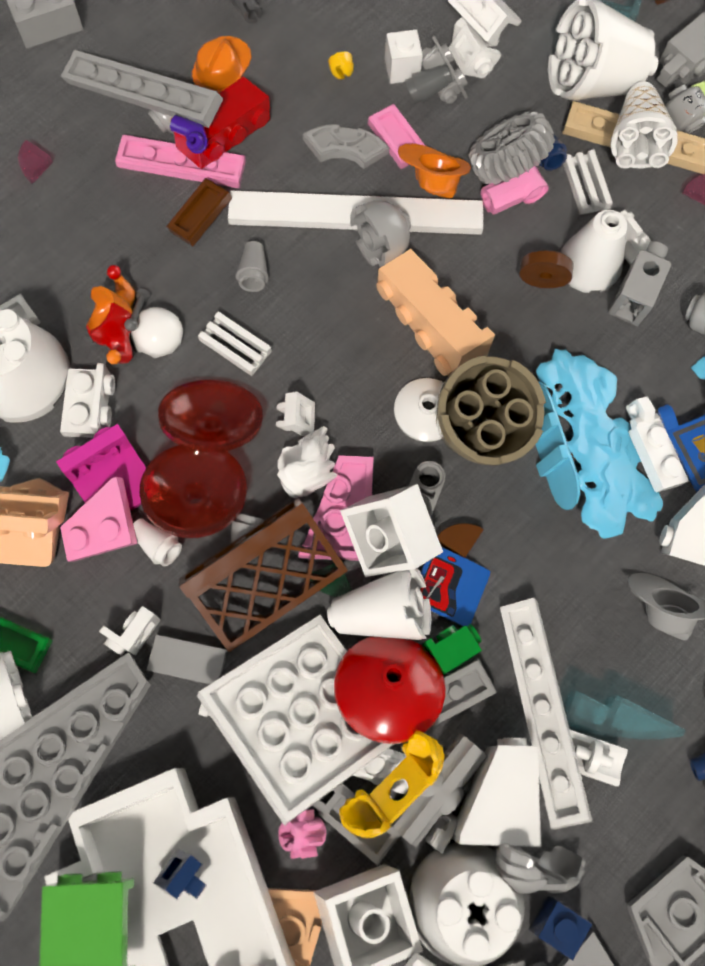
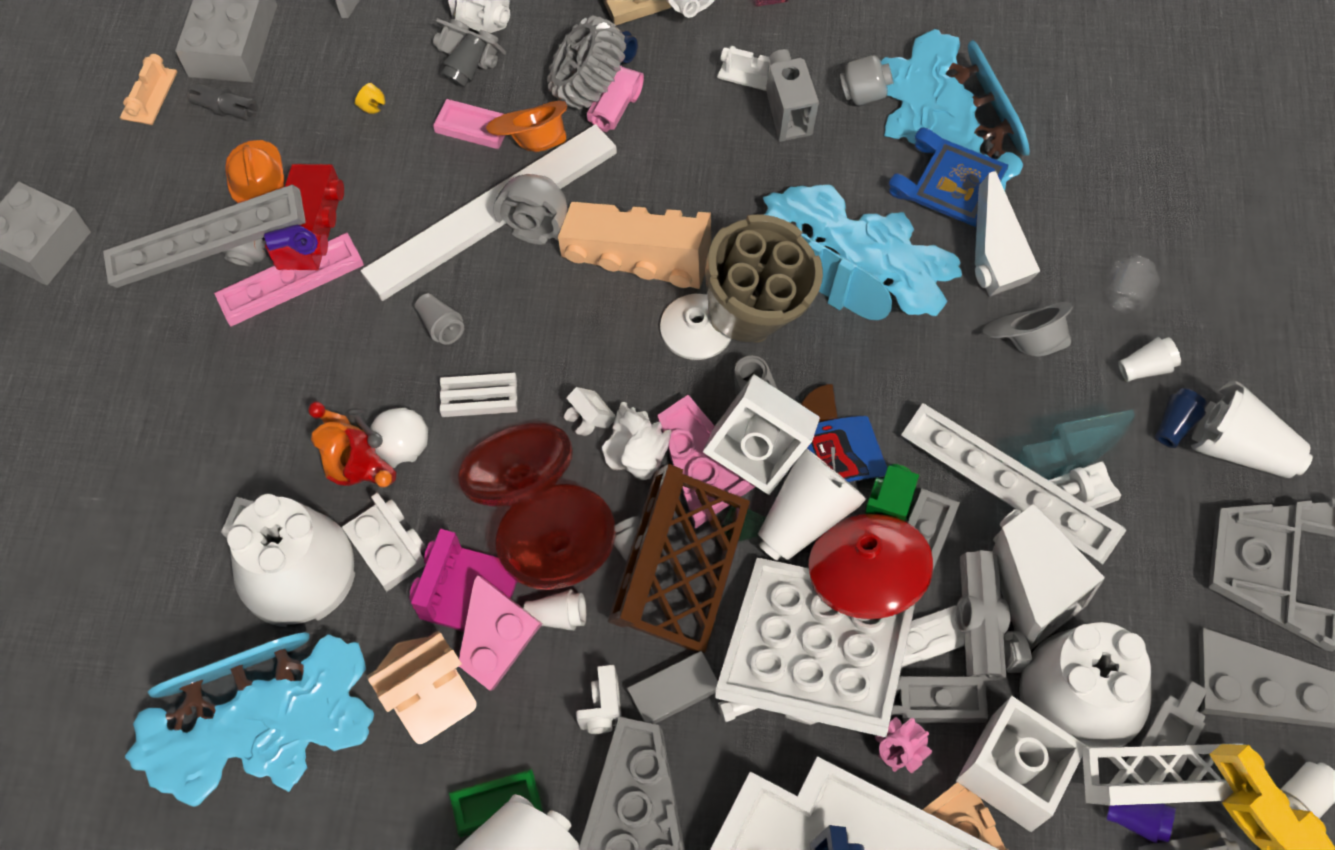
camera: 30 degrees left, 10 degrees down
(33, 161) = (144, 376): clear pink tile -> none
(199, 212) = (347, 308): reddish brown tile -> none
(346, 143) = (425, 163): light grey tile -> none
(374, 813) = (954, 604): yellow piece -> none
(402, 55) = (421, 54): white brick -> none
(546, 269) = (701, 139): reddish brown piece -> none
(551, 871) = (1122, 605): light grey piece -> none
(560, 927) = (1175, 643): dark blue brick -> none
(598, 179) = (674, 46): white tile -> none
(598, 252) = (729, 97): white cone -> none
(654, 446) = (911, 216): white hinge -> none

